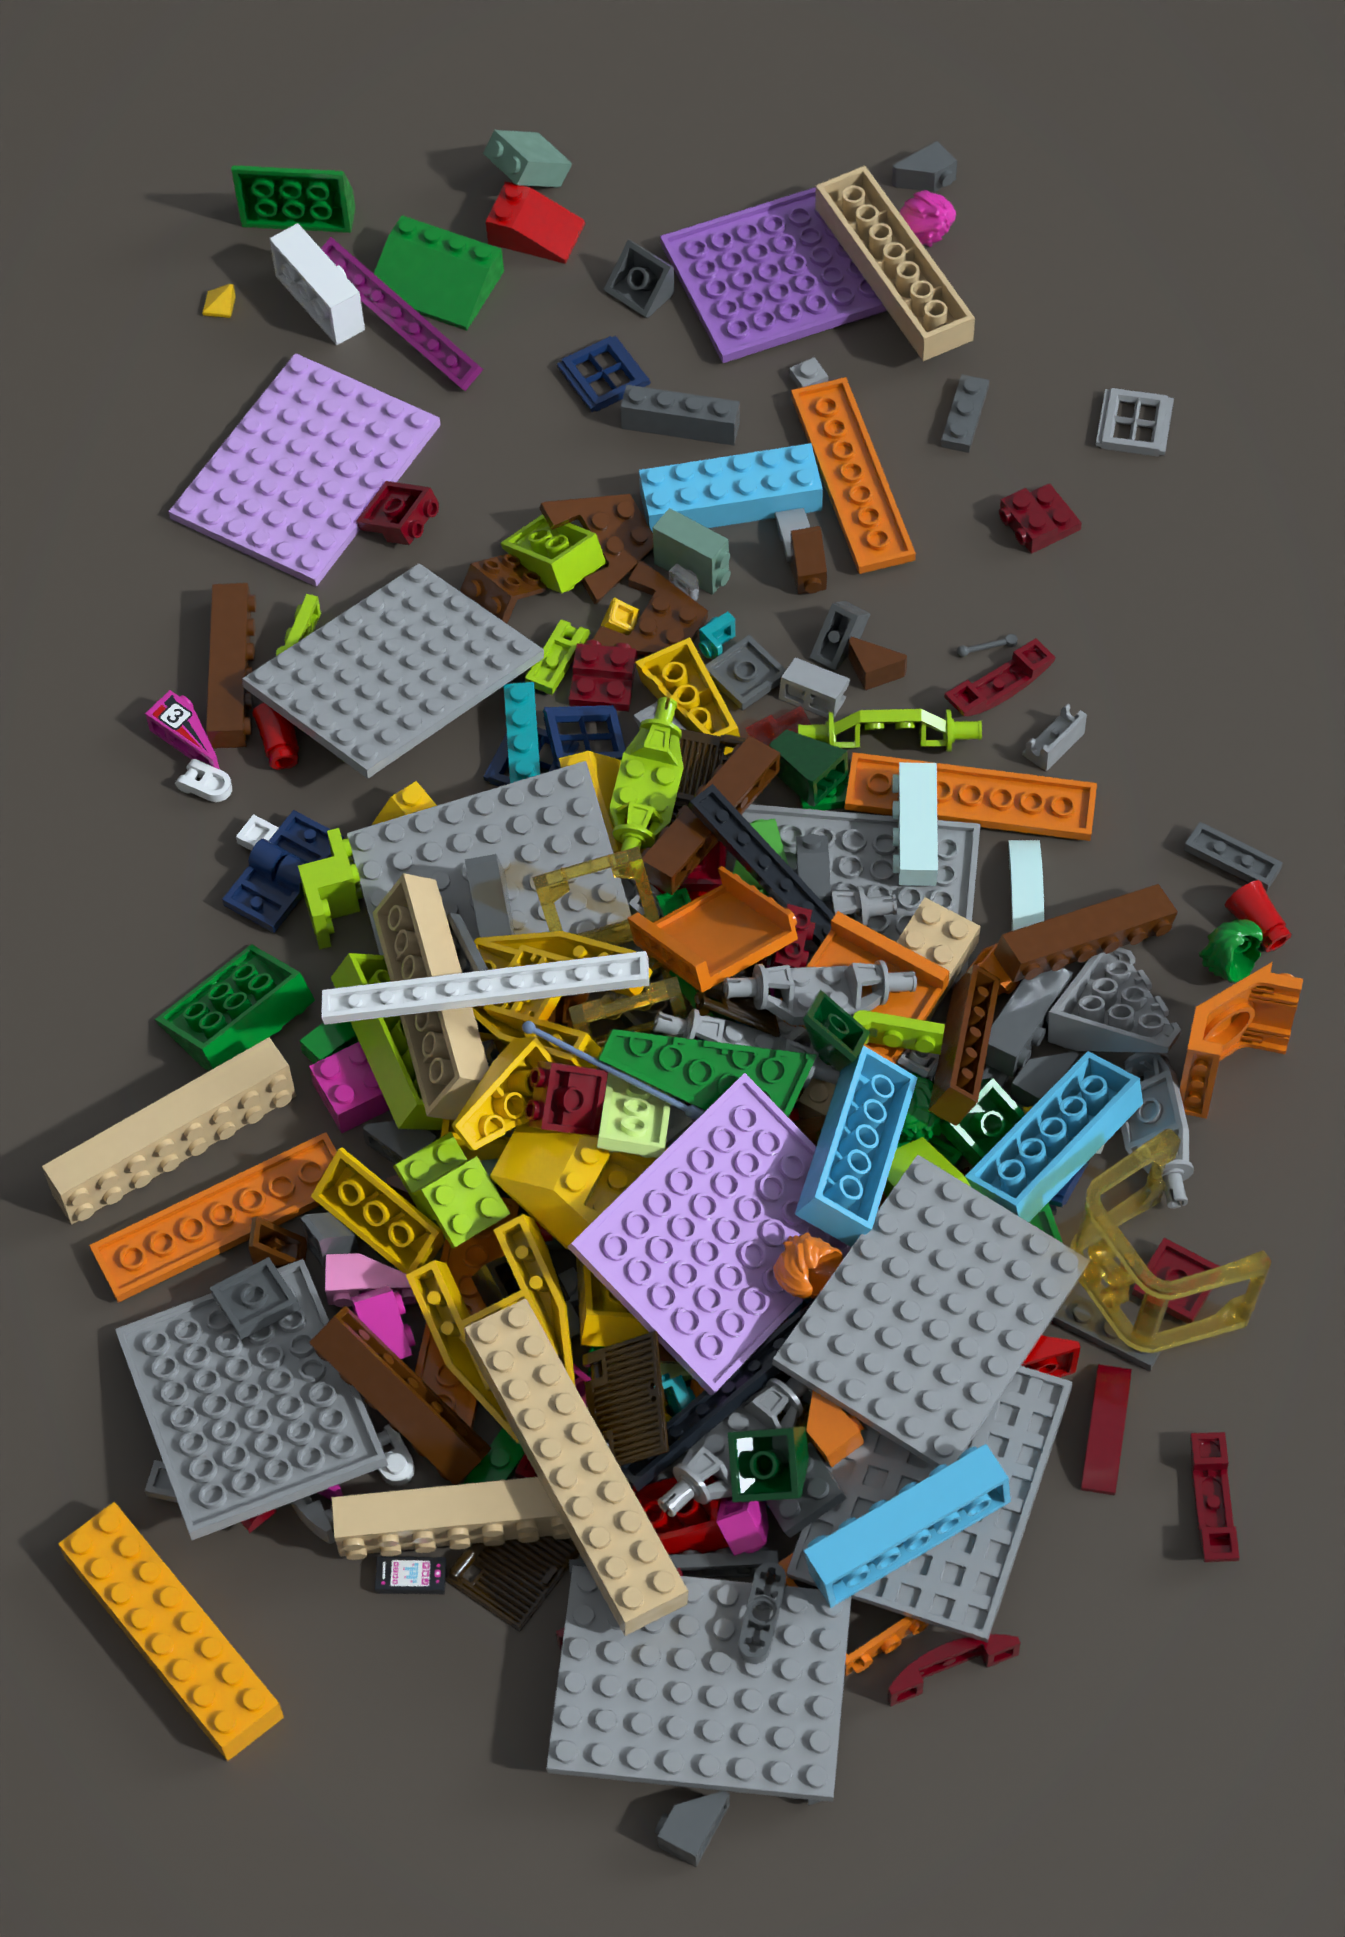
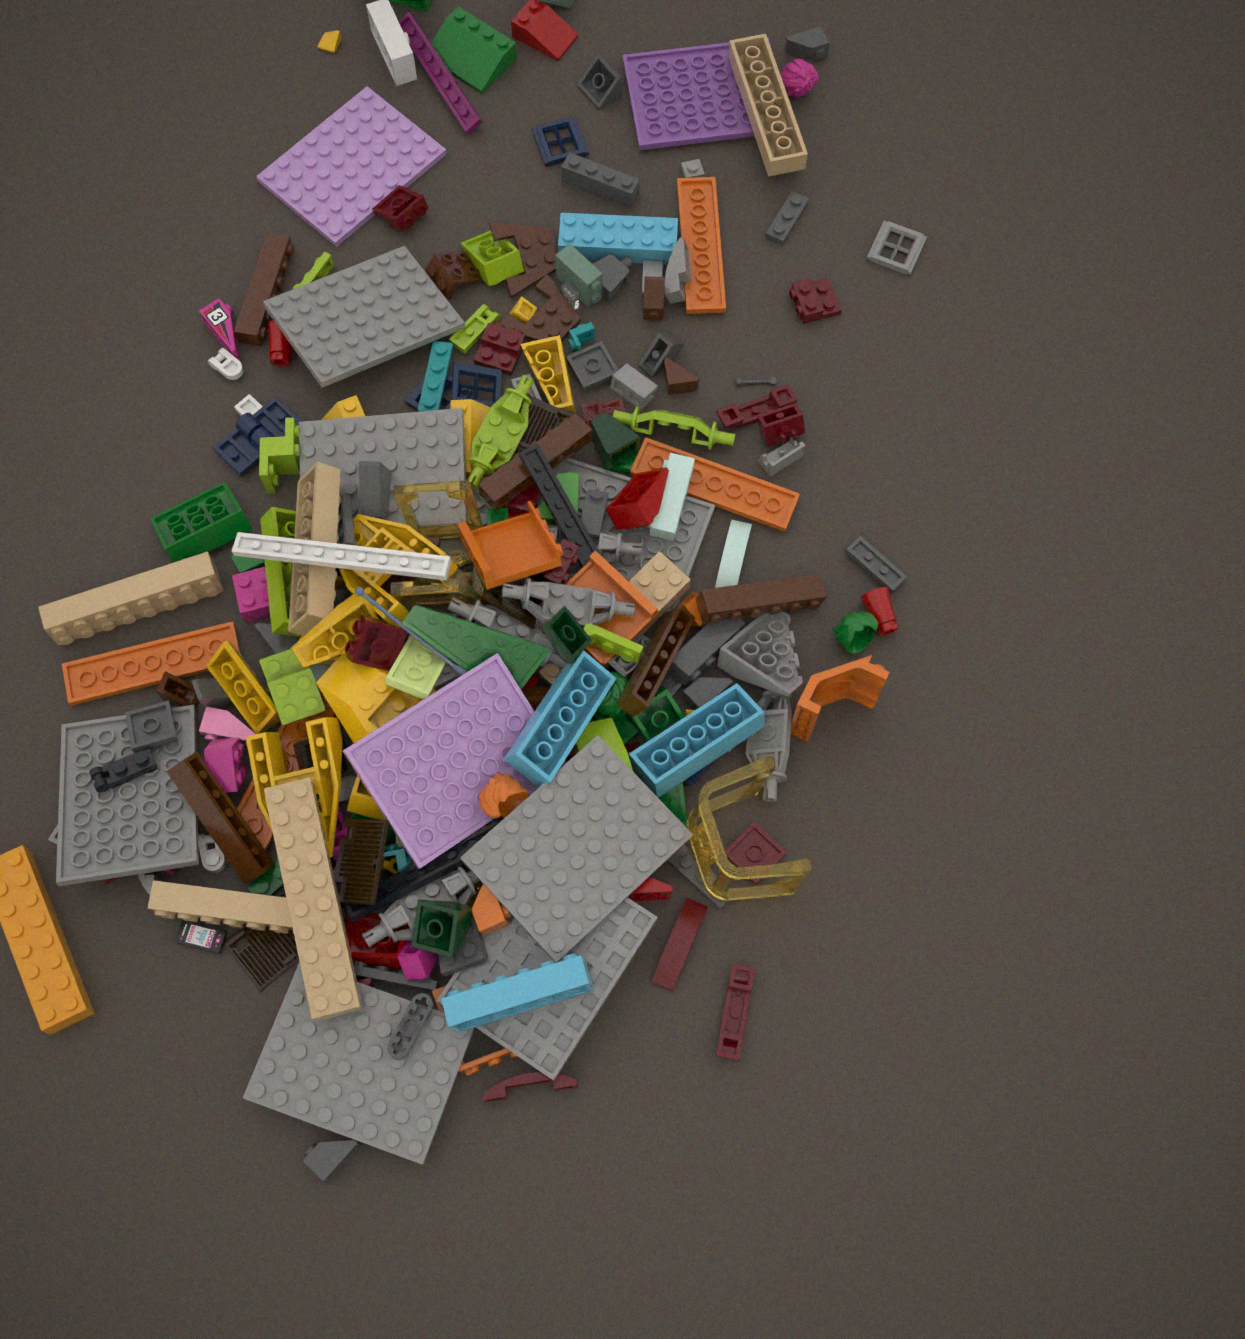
camera: 10 degrees right, 10 degrees up
(234, 1364) = (123, 770): none -> black plate
(744, 541) = (614, 275): none -> dark grey torso
(833, 518) = (677, 272): none -> light grey slope
(873, 836) = (638, 500): none -> red slope
(1043, 694) = (781, 424): none -> dark red brick

